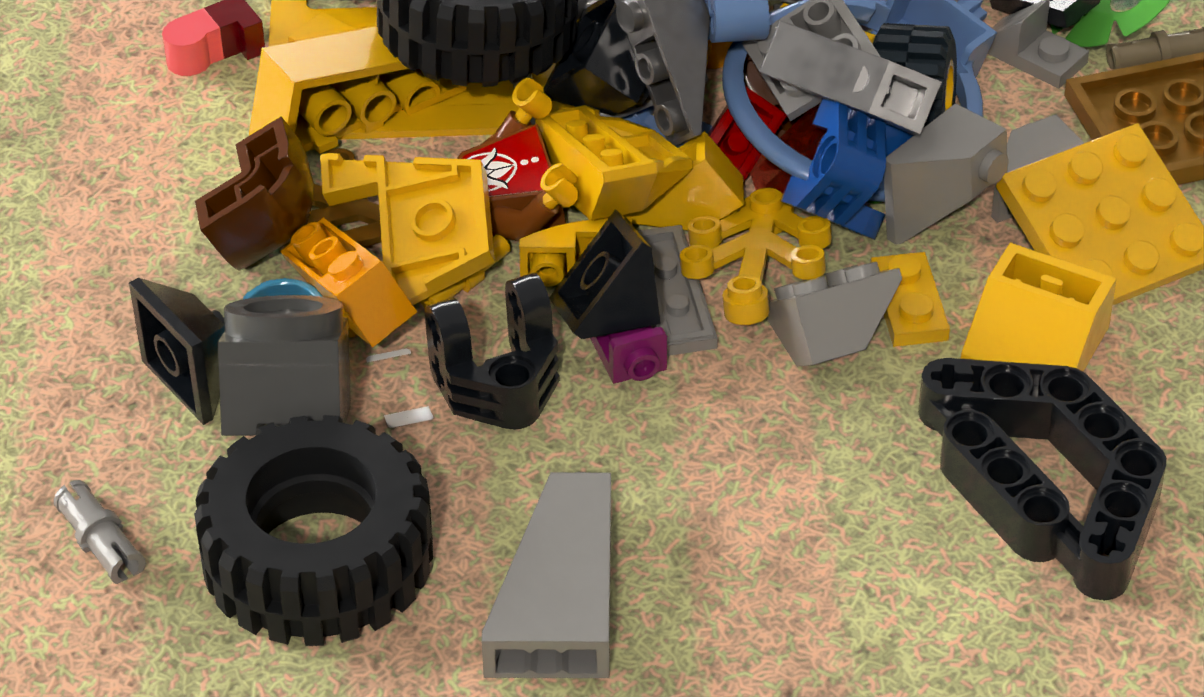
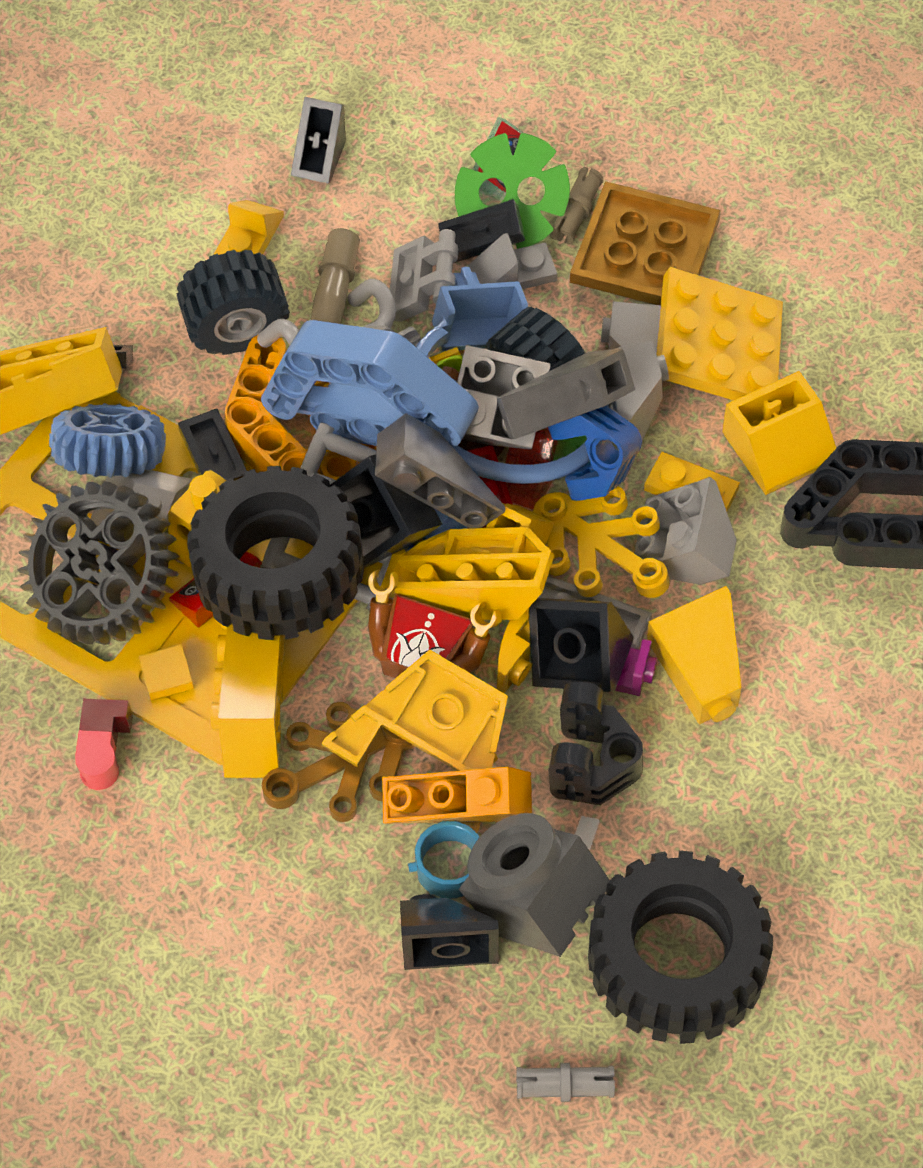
camera: 55 degrees left, 15 degrees up
(264, 201) = (340, 805): reddish brown brick -> none
(557, 591) = (813, 828): light grey slope -> none
(701, 393) = (701, 654): none -> yellow slope

